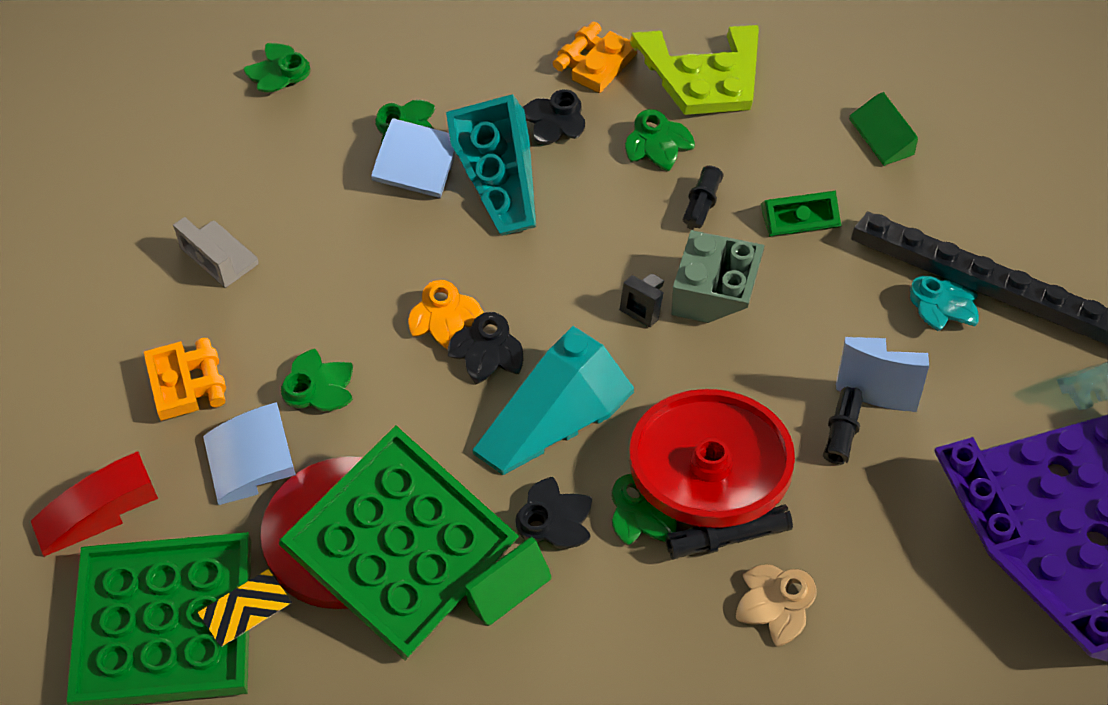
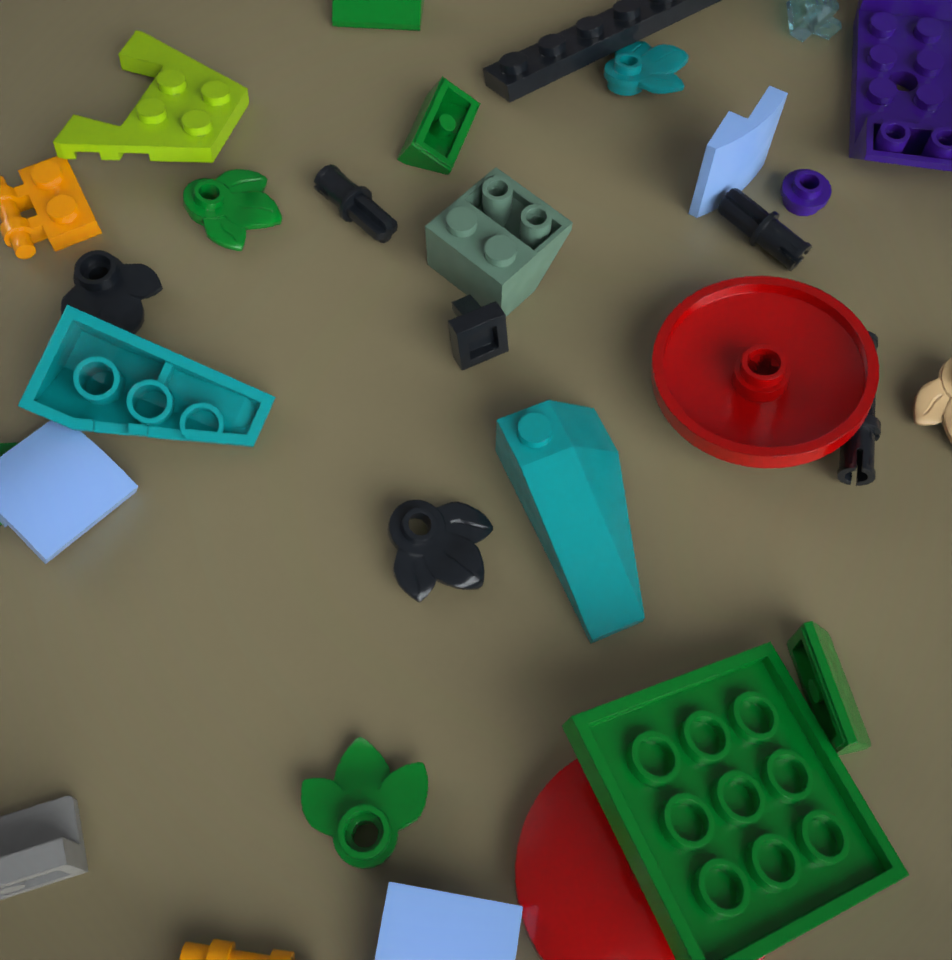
camera: 65 degrees left, 10 degrees up
(442, 317) = (358, 578): light orange plate -> none
(559, 513) = (745, 580): black plate -> none
(637, 514) = (785, 490): green plate -> none
(897, 448) = (805, 192): none -> dark purple plate

